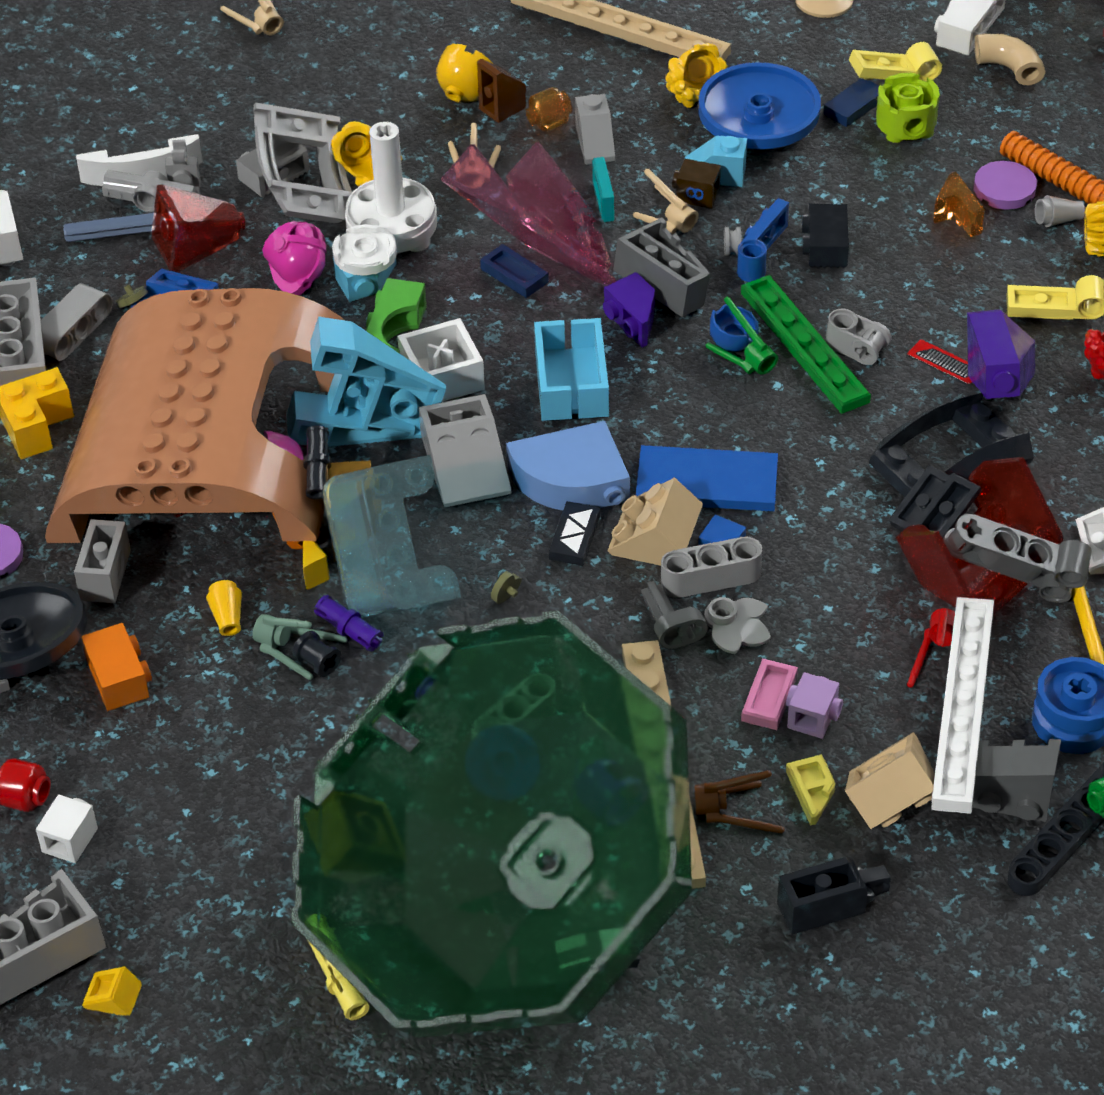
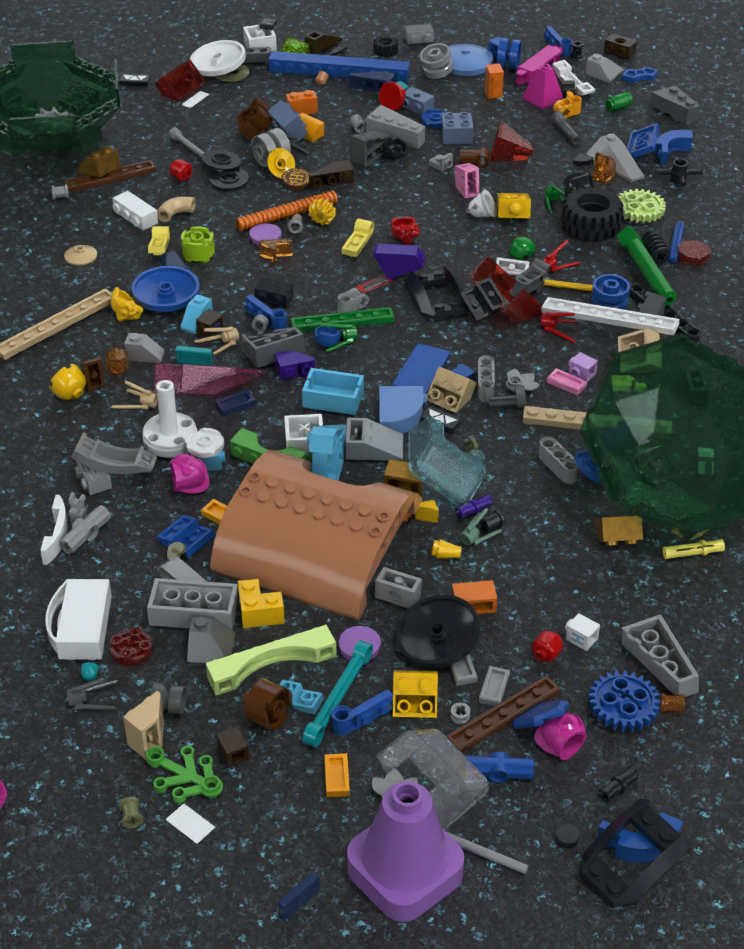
camera: 75 degrees left, 5 degrees down
(108, 227) = (108, 540): sand blue axle -> none
(113, 991) = (687, 633): yellow slope -> none
(192, 226) = (134, 516): clear red slope -> none
(316, 461) = (386, 475): black pin -> none
(353, 151) = (120, 431): yellow hair -> none

